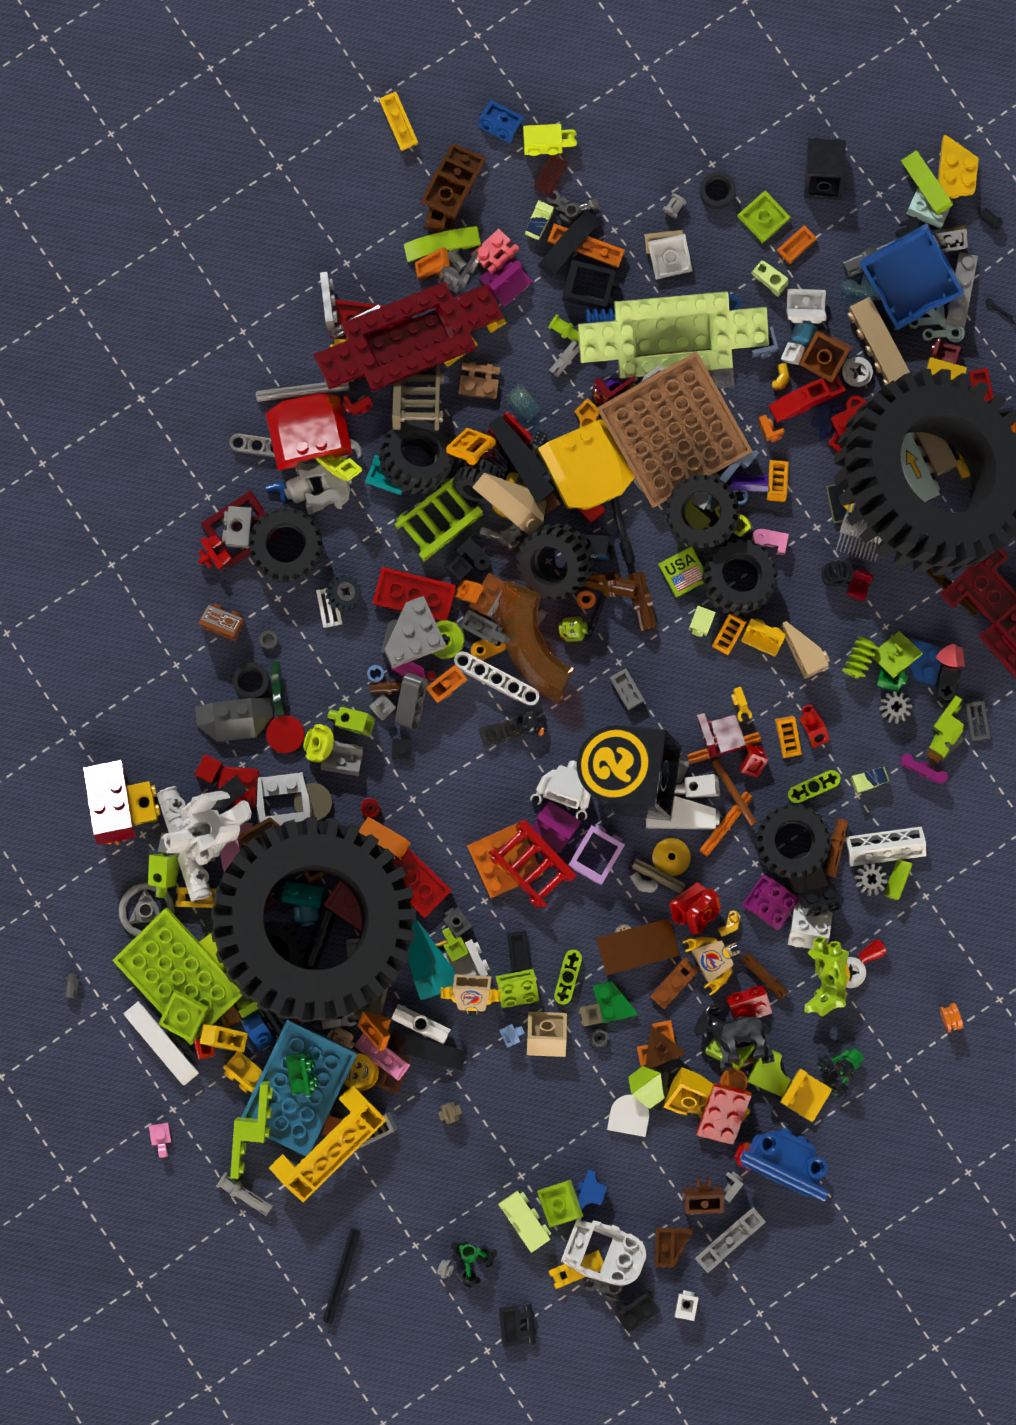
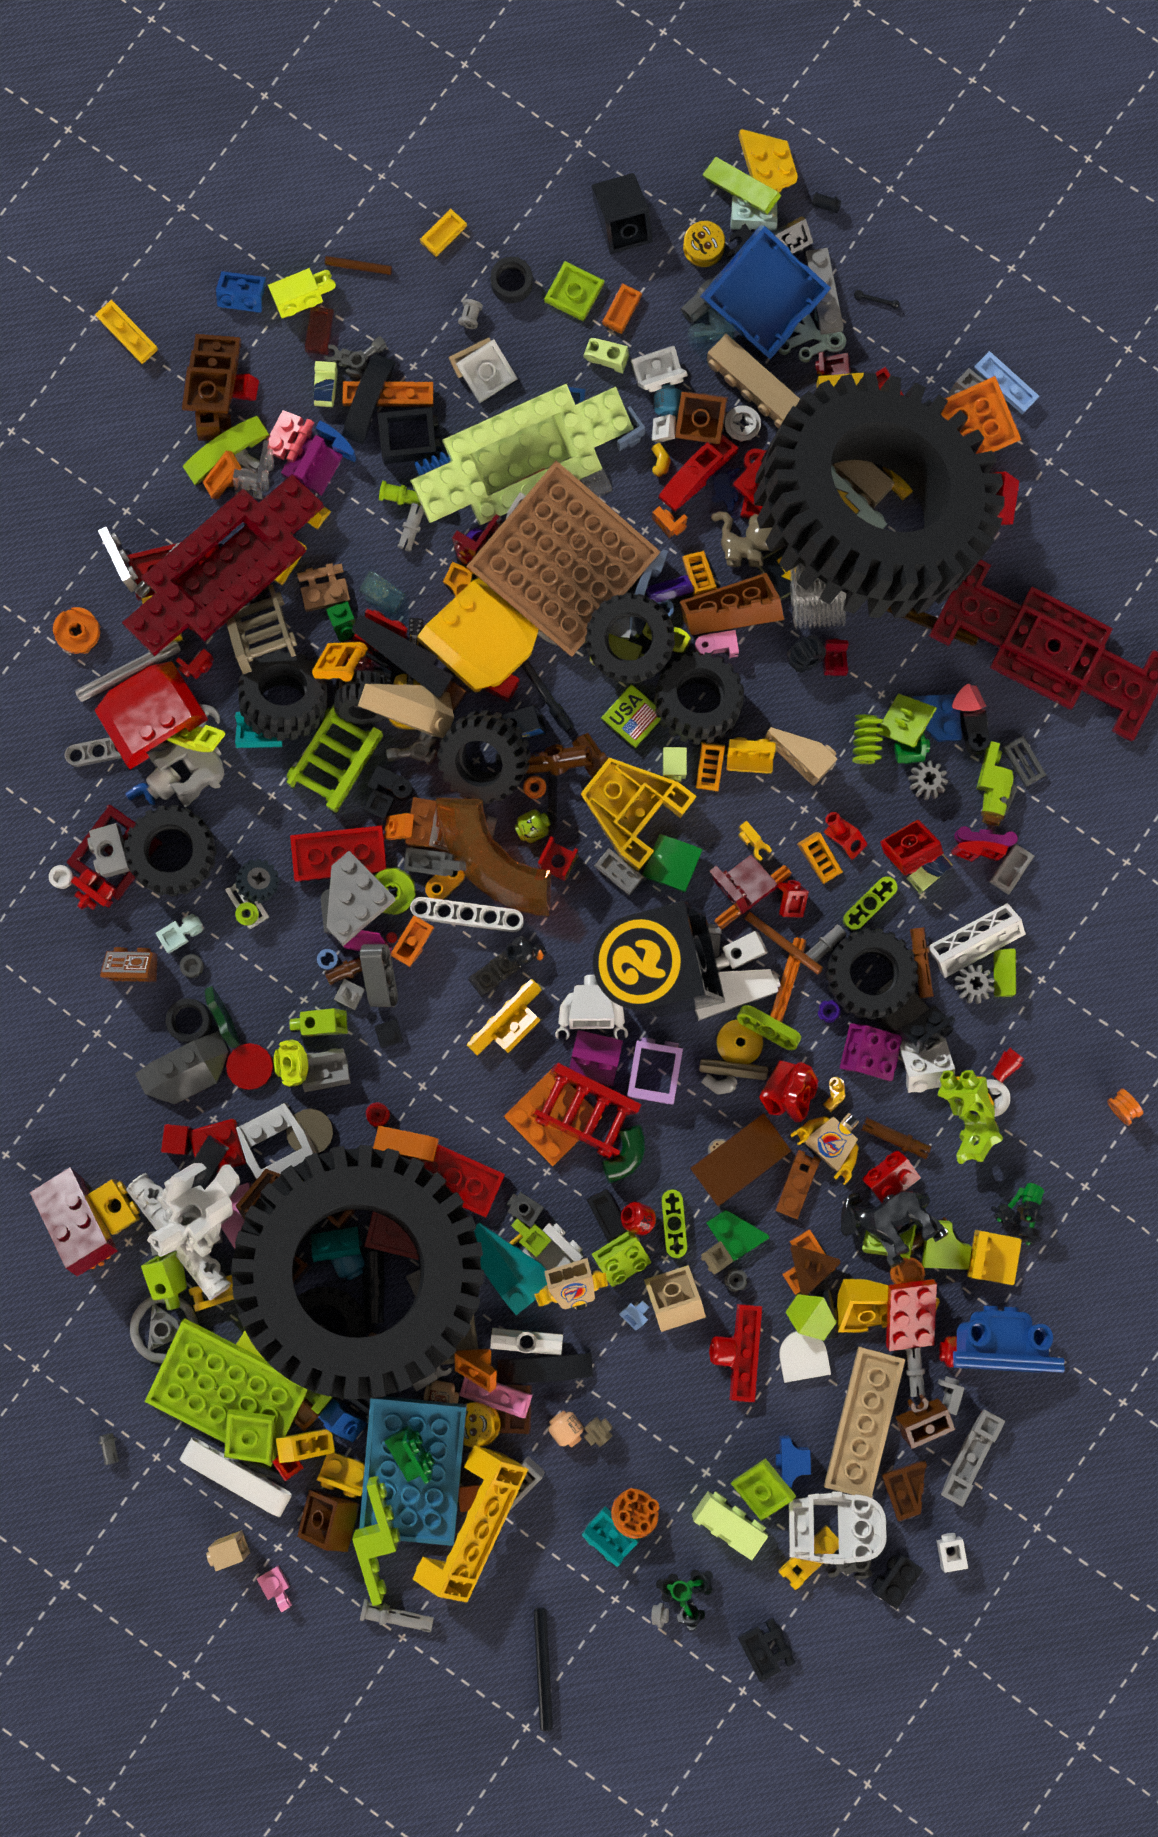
camera: 20 degrees left, 0 degrees up
(136, 1095) = (228, 1551): none -> tan brick
(192, 533) = (60, 877): none -> white tile
(219, 1102) = (328, 1521): none -> reddish brown slope
(263, 344) = (72, 618): none -> orange plate
(263, 611) = (174, 936): none -> light aqua plate
(331, 619) = (253, 917): none -> lime plate
(426, 1101) = (566, 1429): none -> light nougat head
(430, 1195) = (607, 1539): none -> teal bracket
(455, 1184) = (635, 1513): none -> orange tile
(476, 199) = (245, 387): none -> red slope
(484, 413) = (342, 620): none -> green bracket
(499, 775) = (510, 1023): none -> yellow bracket
(533, 273) = (339, 442): none -> blue slope
(541, 962) = (638, 1218): none -> red head
(553, 912) = (630, 1156): none -> dark green cylinder
(579, 653) = (554, 849): none -> red piece
(582, 1094) = (740, 1352): none -> red plate
(600, 133) = (358, 265): none -> reddish brown bar
(651, 637) = (626, 800): none -> yellow wedge
(657, 1182) = (864, 1422): none -> tan plate
(671, 698) = (672, 863): none -> green slope
(677, 131) = (443, 232): none -> yellow tile
(698, 853) = (779, 1032): none -> lime beam
(711, 1159) = (915, 1372): none -> light grey pin
(744, 858) = (835, 1011): none -> dark purple plate
(767, 805) = (826, 943): none -> light grey axle
(793, 515) = (733, 606): none -> dark orange wedge
(815, 469) = (742, 547): none -> dark tan animal
(862, 755) = (912, 847): none -> red brick
(880, 217) = (704, 244): none -> yellow head
(906, 774) = (973, 849): none -> red slope
(935, 801) = (1011, 868): none -> light grey tile

